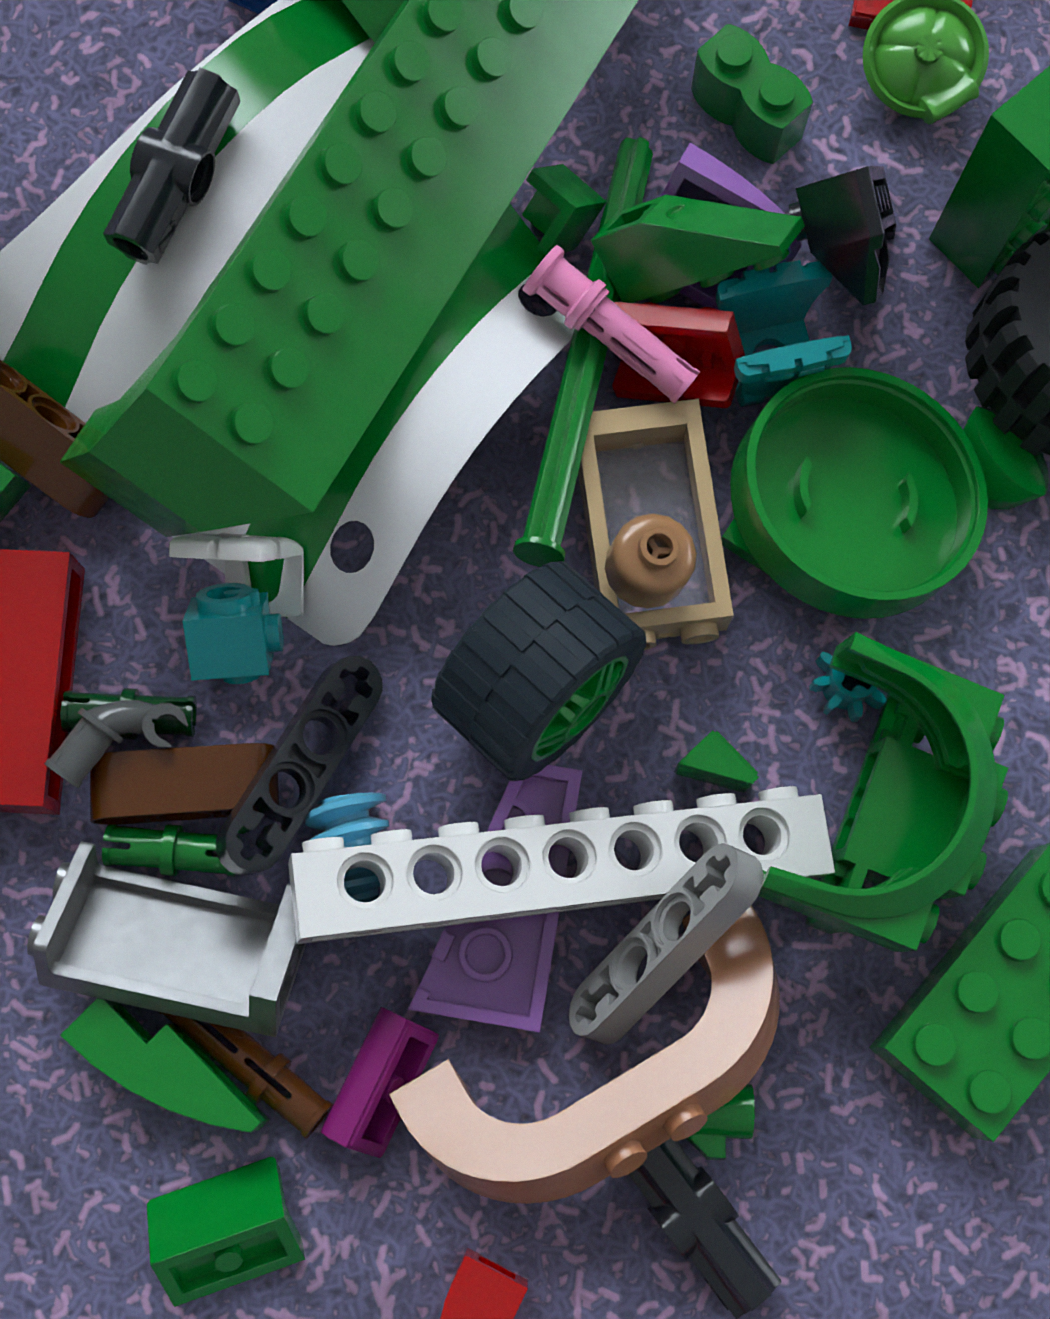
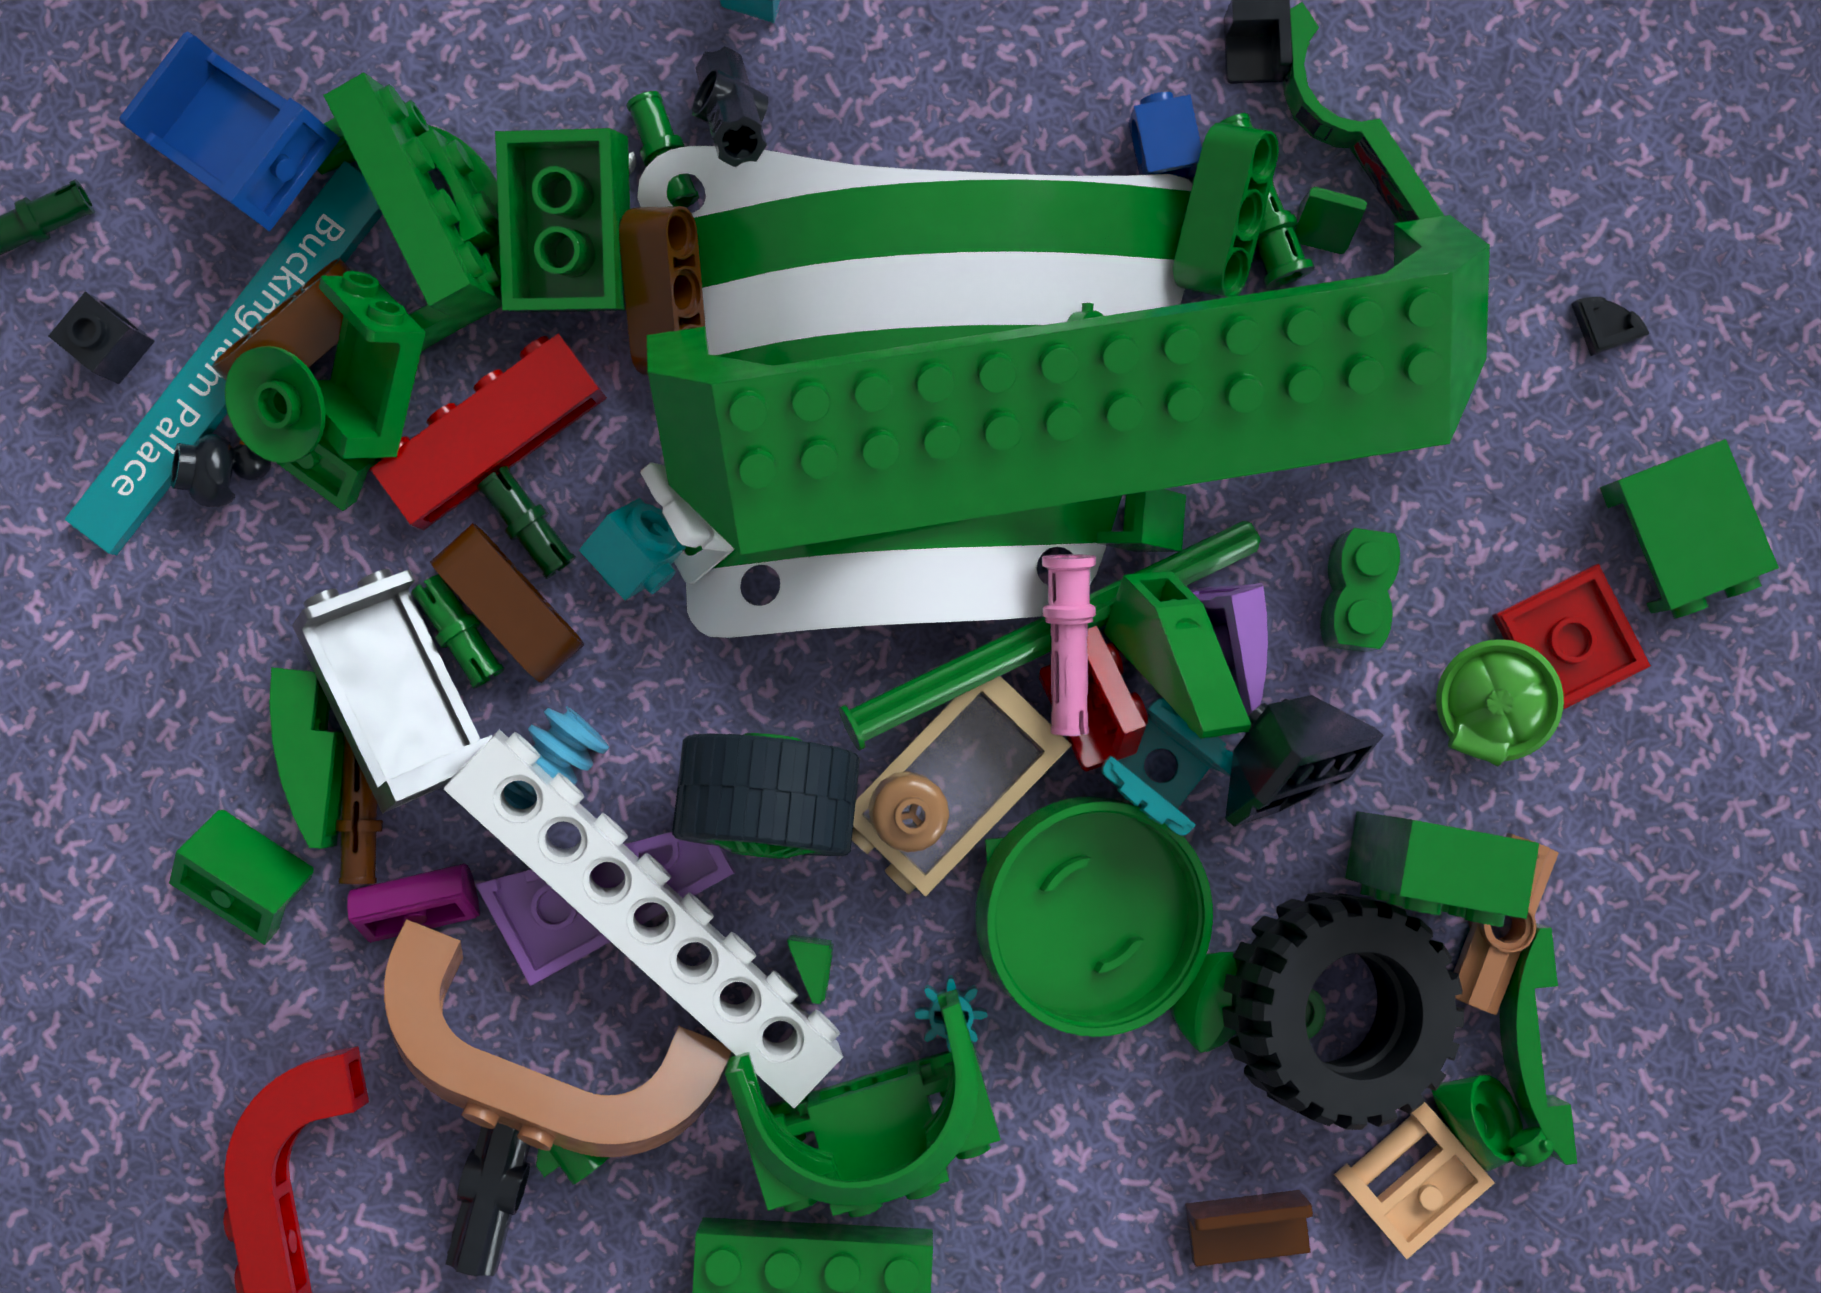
camera: 55 degrees right, 10 degrees up
(102, 727) = (498, 521): dark grey piece -> none
(172, 166) = (920, 234): black piece -> none
(305, 766) = (581, 685): black beam -> none
(716, 893) = (651, 1020): light grey beam -> none

